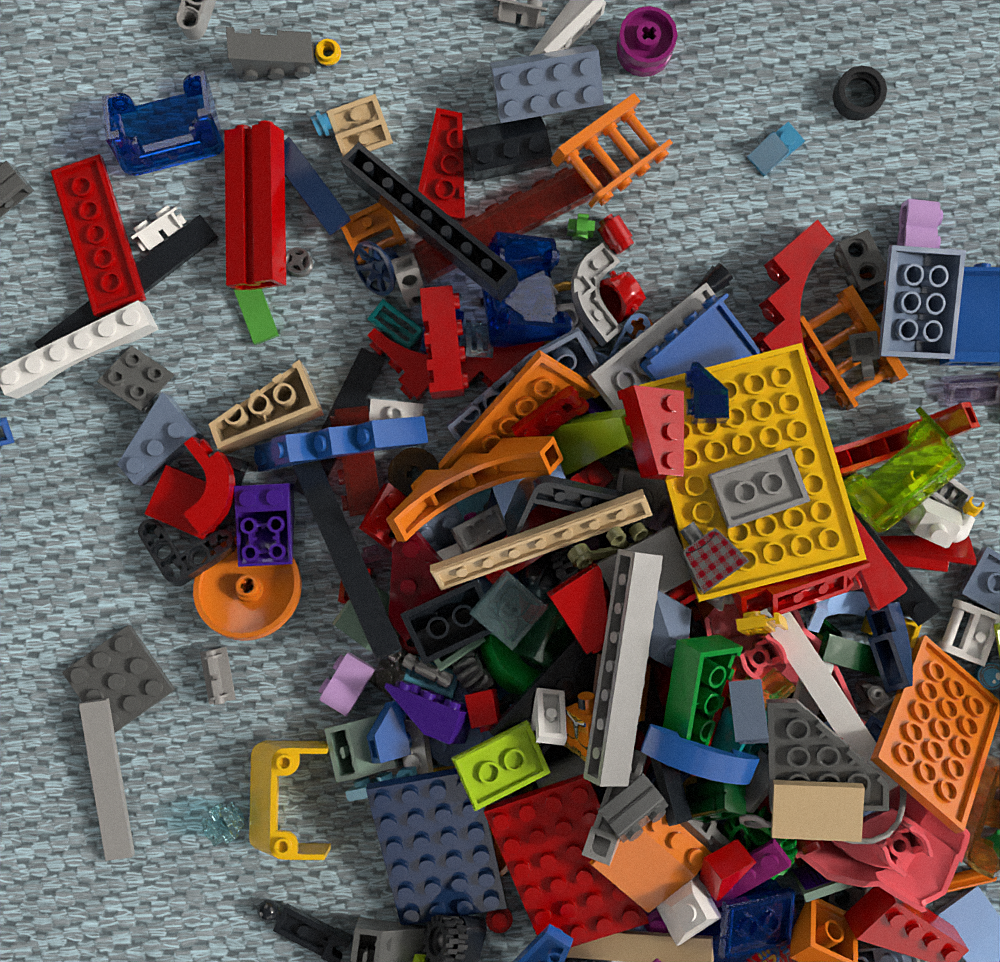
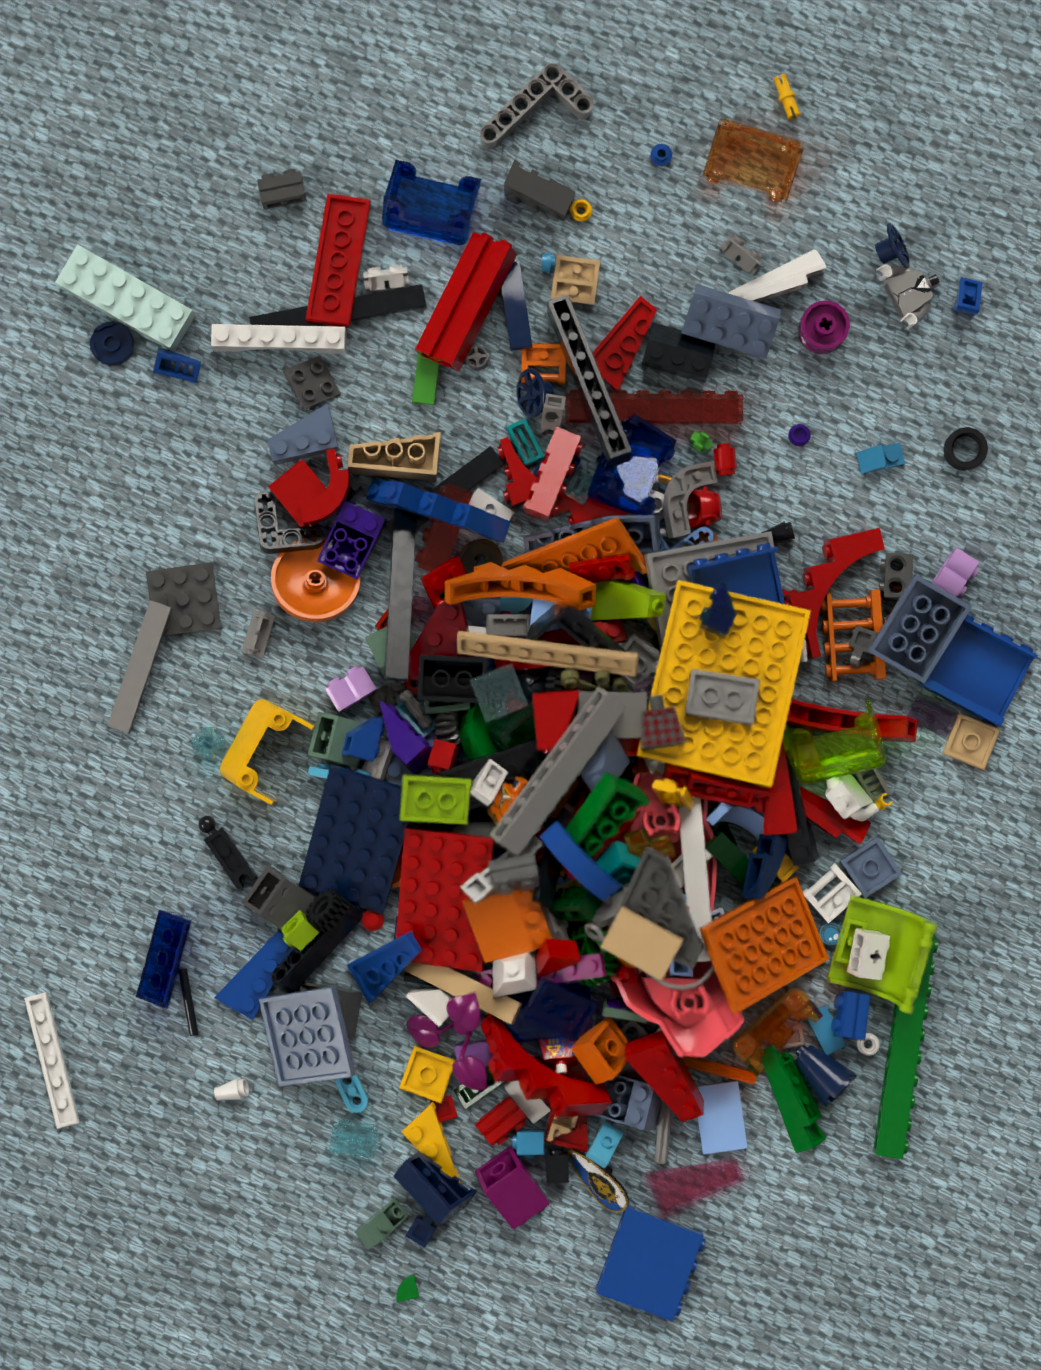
camera: 30 degrees right, 0 degrees up
(607, 125) = (760, 376): orange fence -> none
(657, 430) = (670, 617): wedge -> none
(679, 168) = (799, 435): none -> dark purple plate
(748, 711) = (629, 847): sand blue hinge -> none
(873, 697) = (732, 898): light grey hinge -> none

